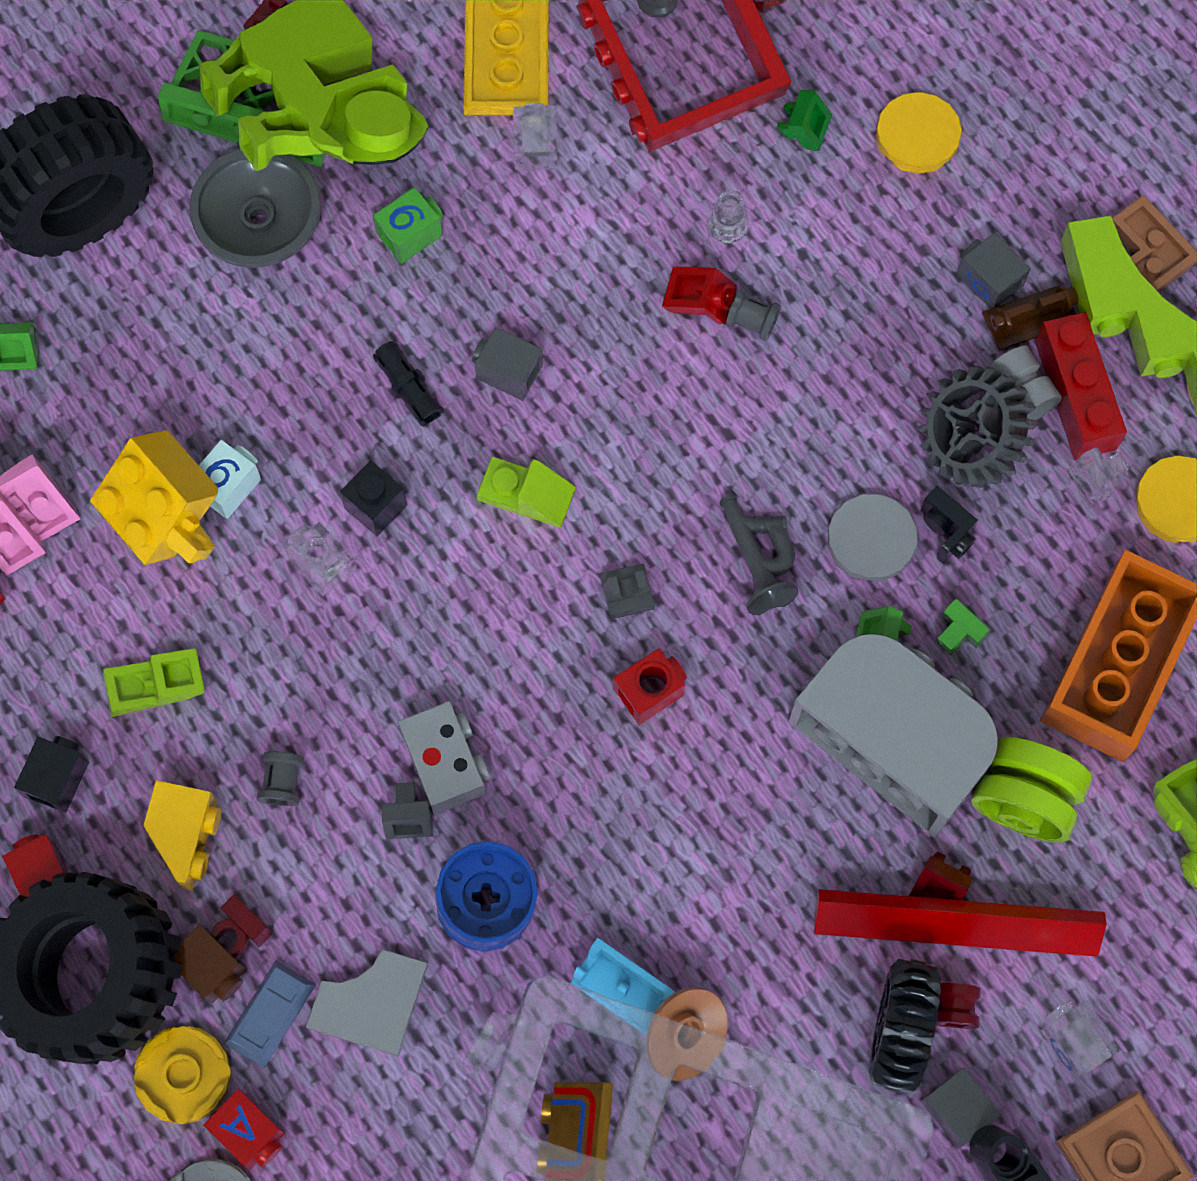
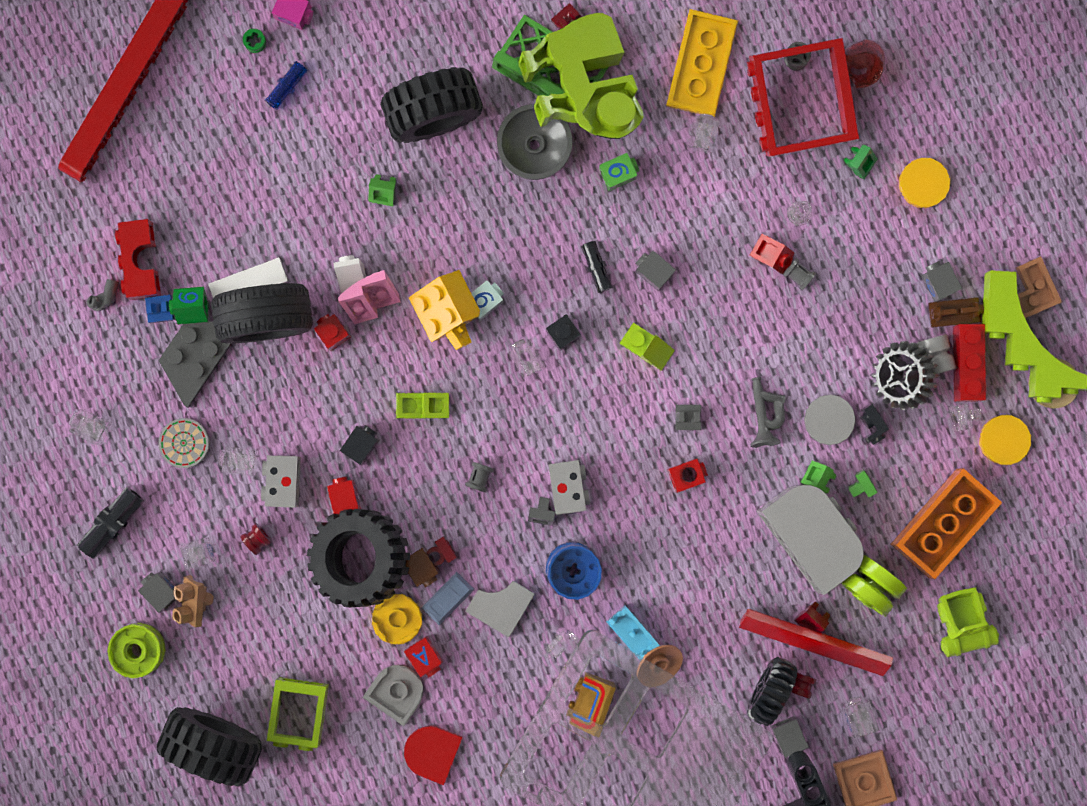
camera: 15 degrees right, 15 degrees up
(179, 828) = (420, 491): yellow slope -> none

